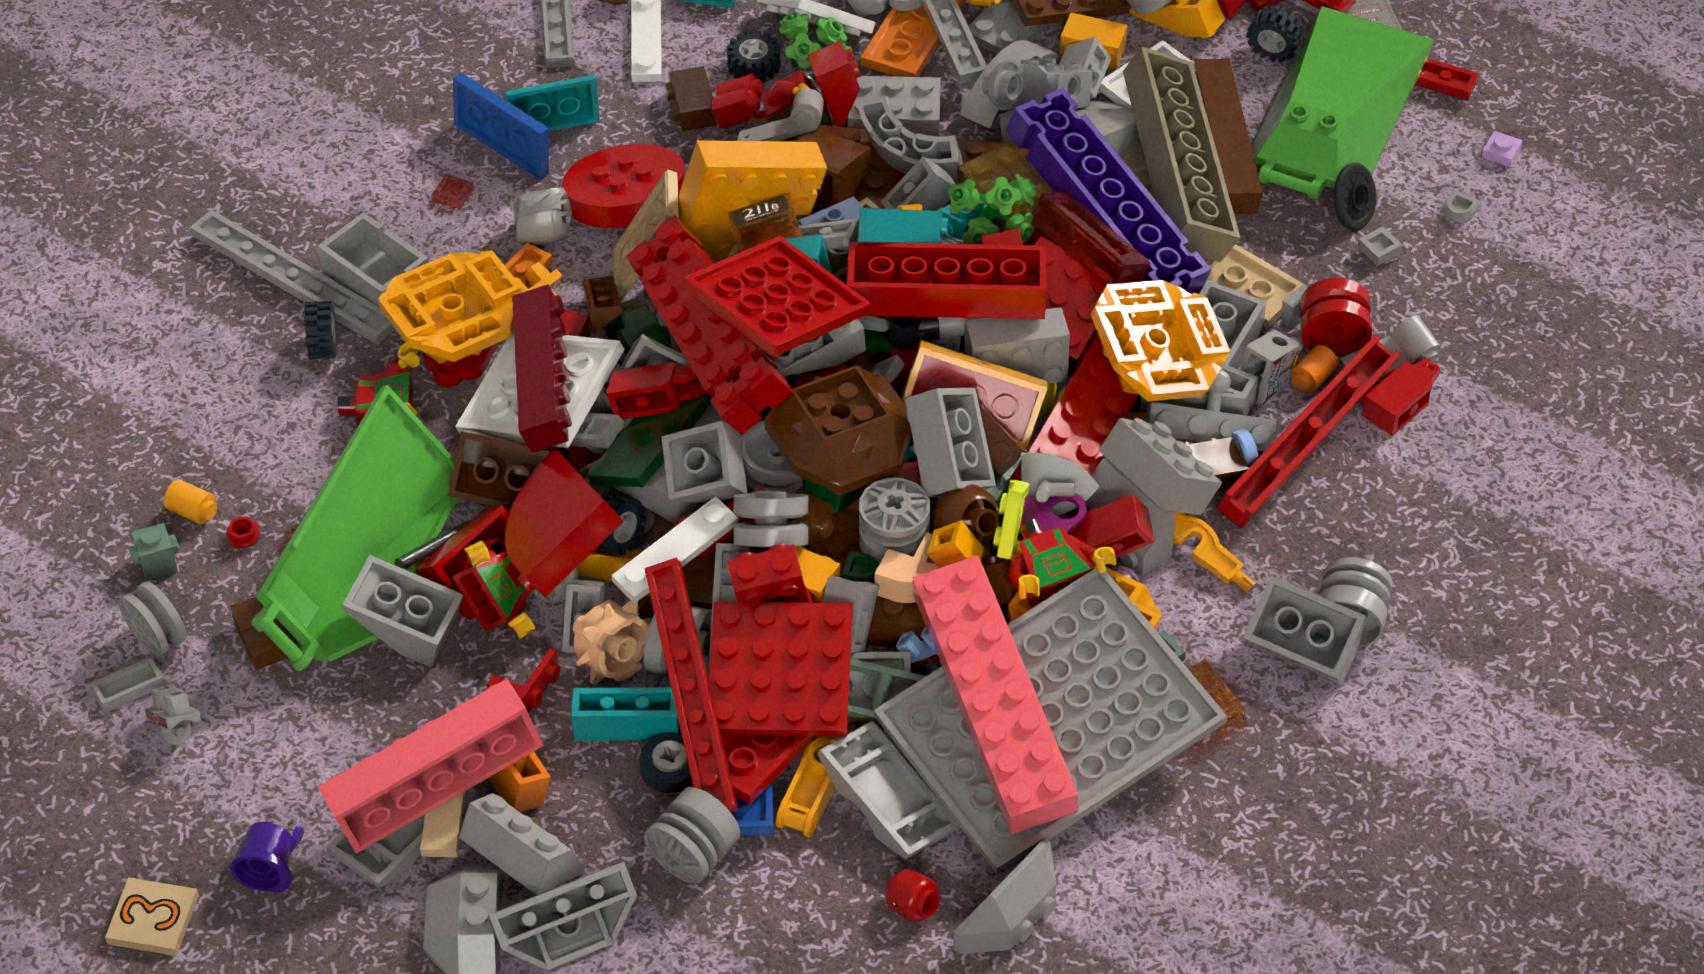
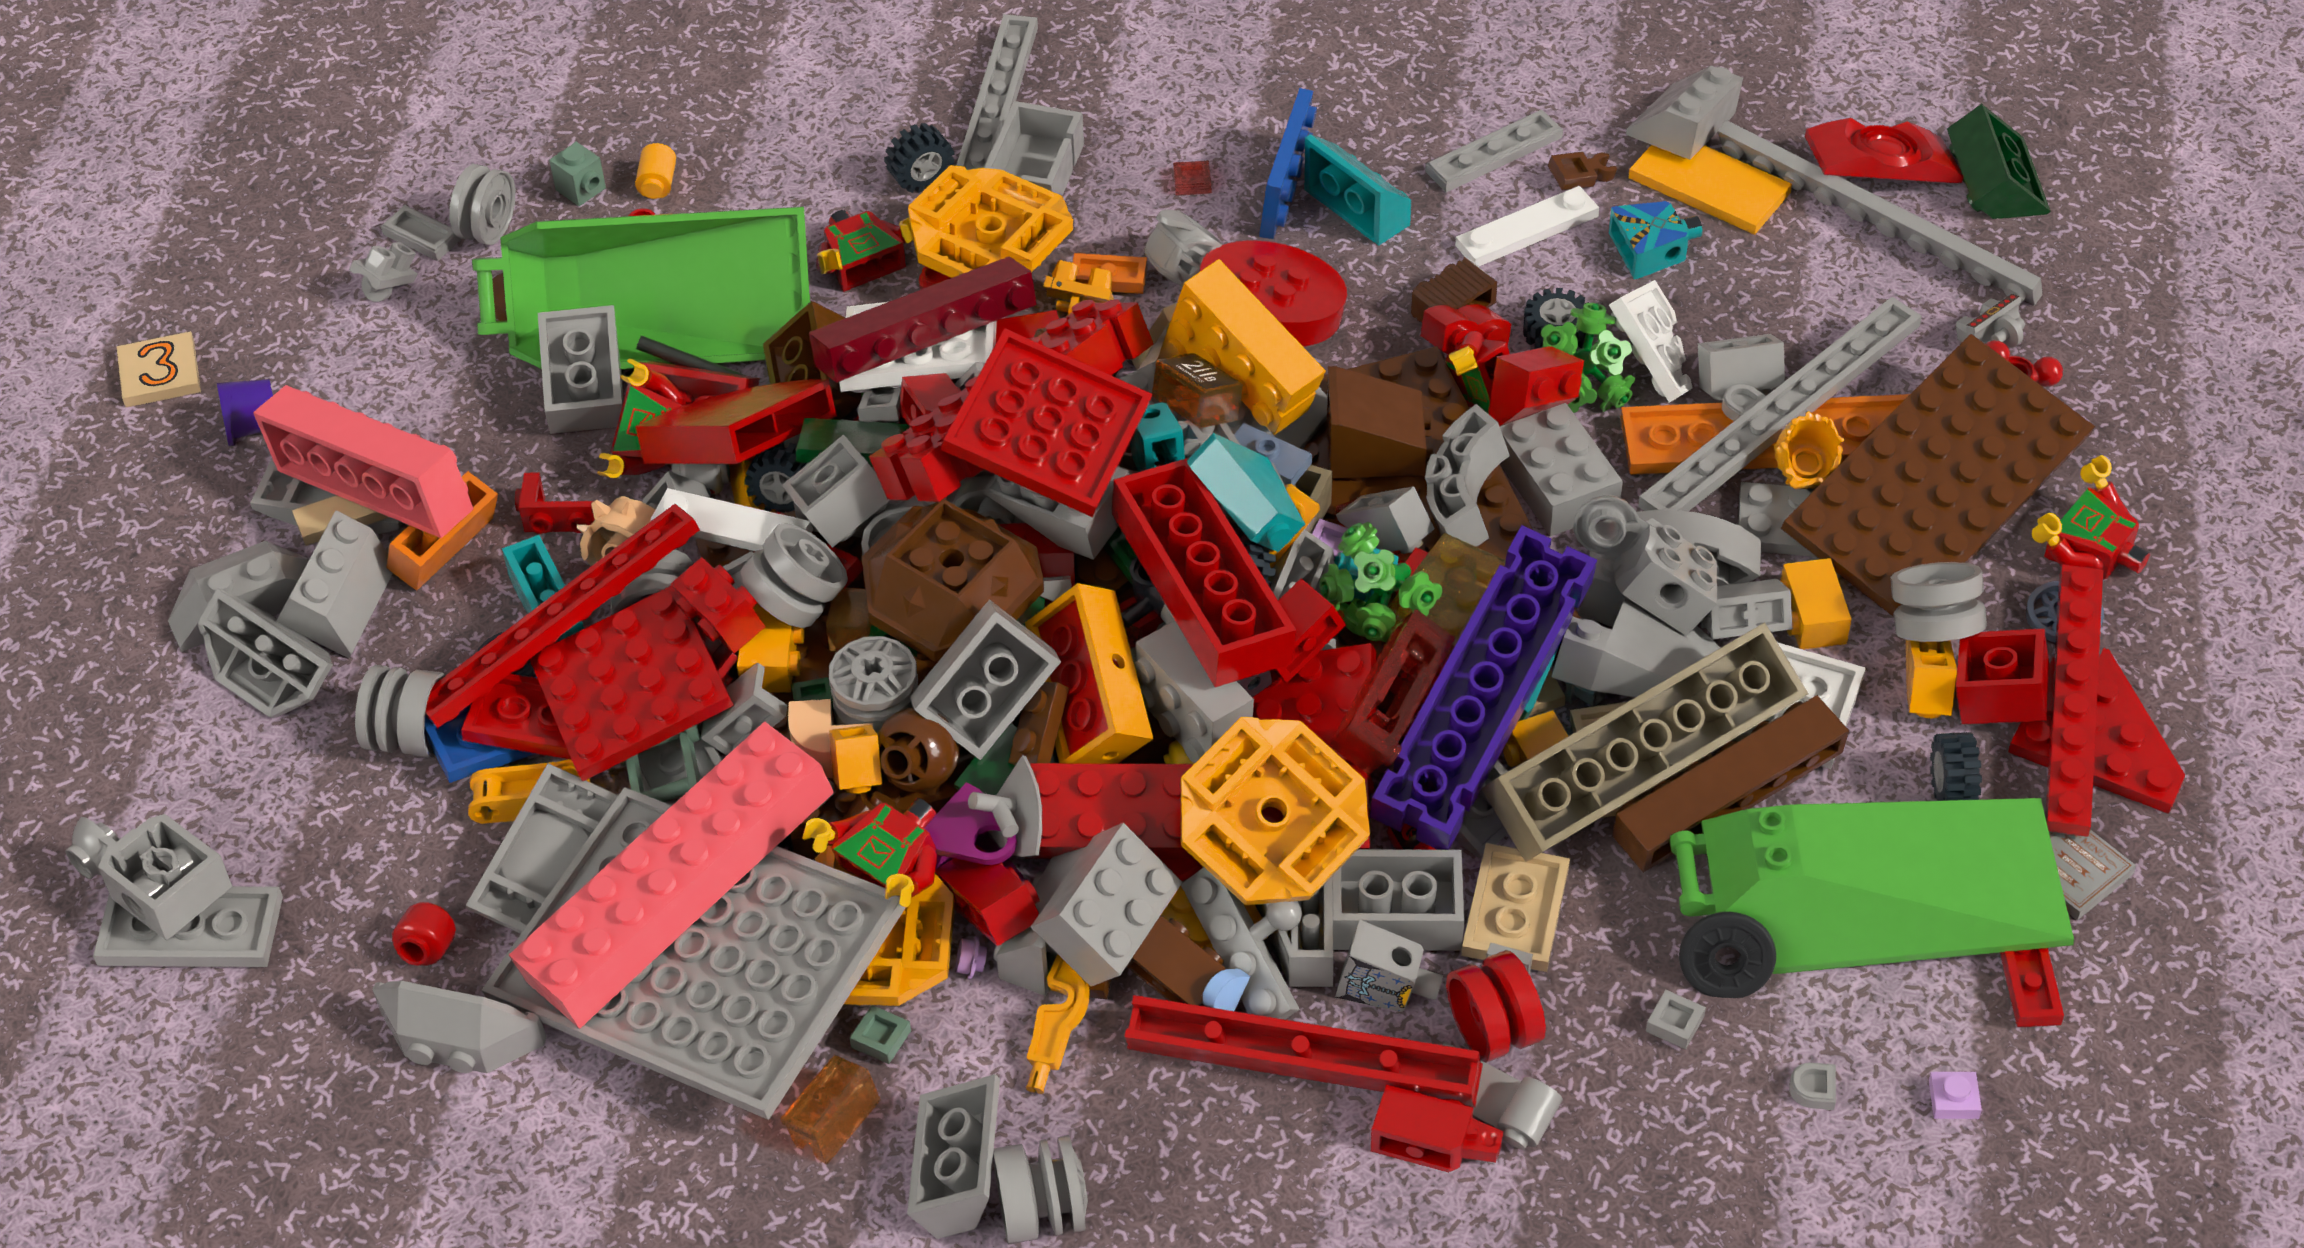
camera: 65 degrees right, 0 degrees up
(804, 118) = (1416, 366): light grey door -> none
(1012, 507) = (924, 777): neon yellow plate -> none
(1314, 369) = (1413, 1020): orange brick -> none

